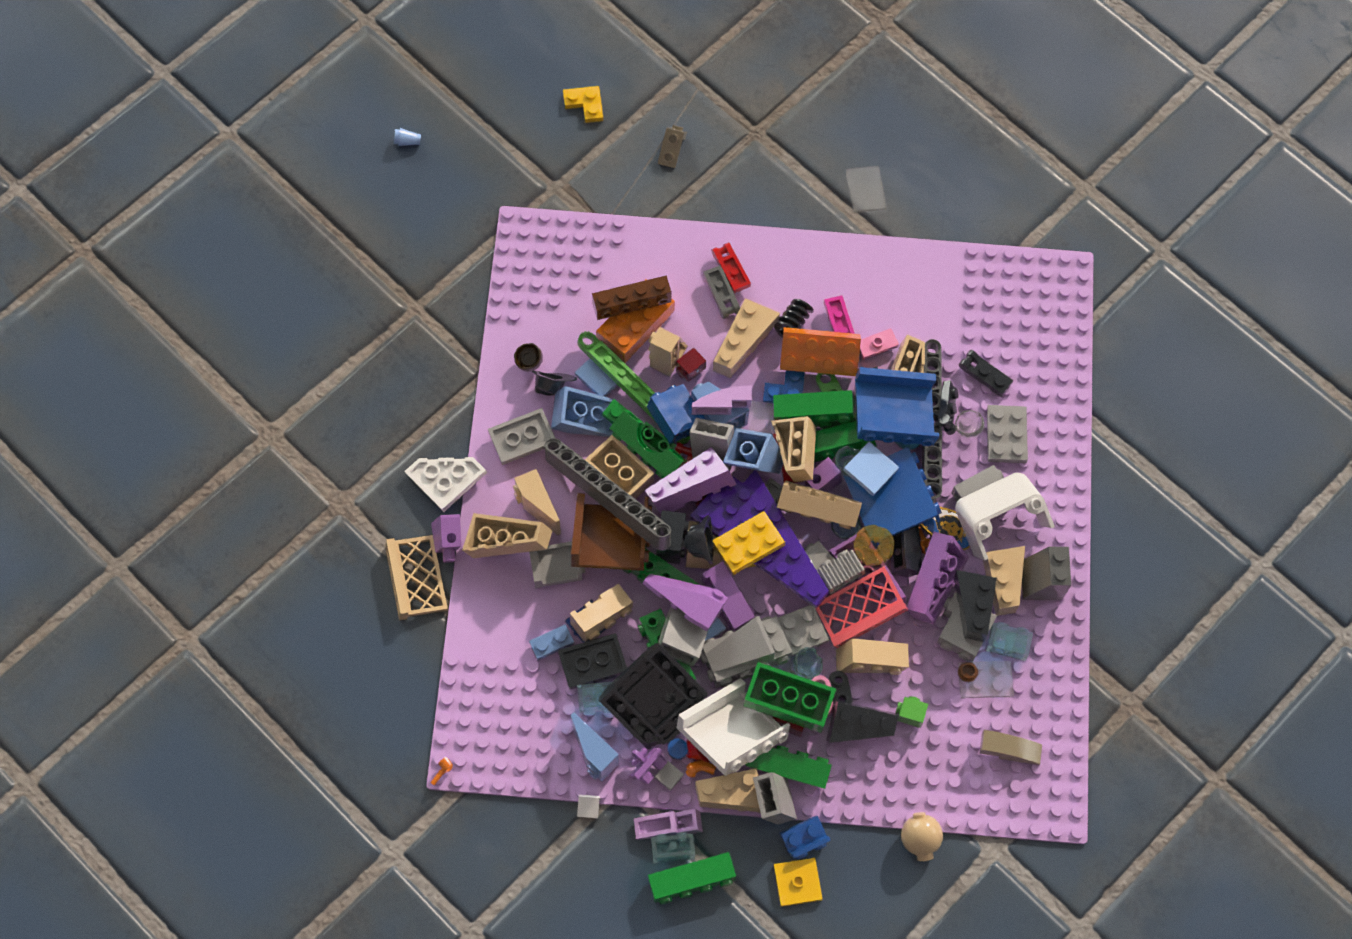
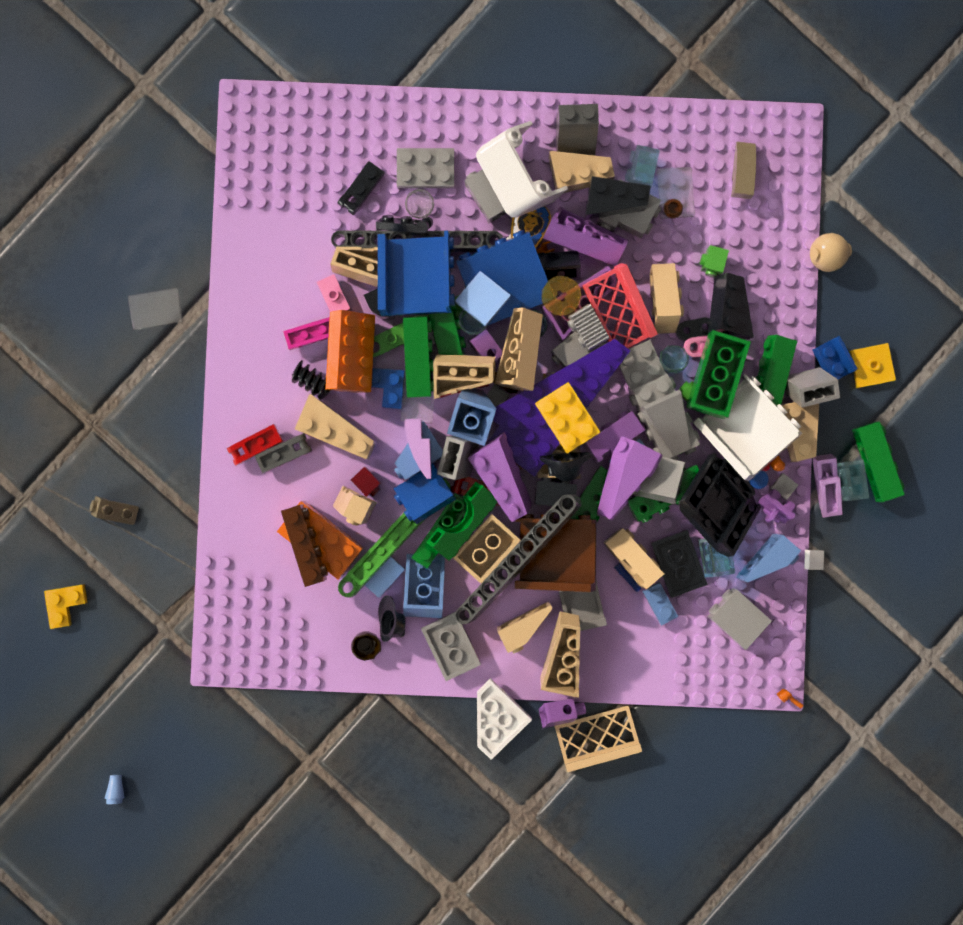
camera: 90 degrees left, 20 degrees up
(531, 718) = (739, 618): none -> light grey brick

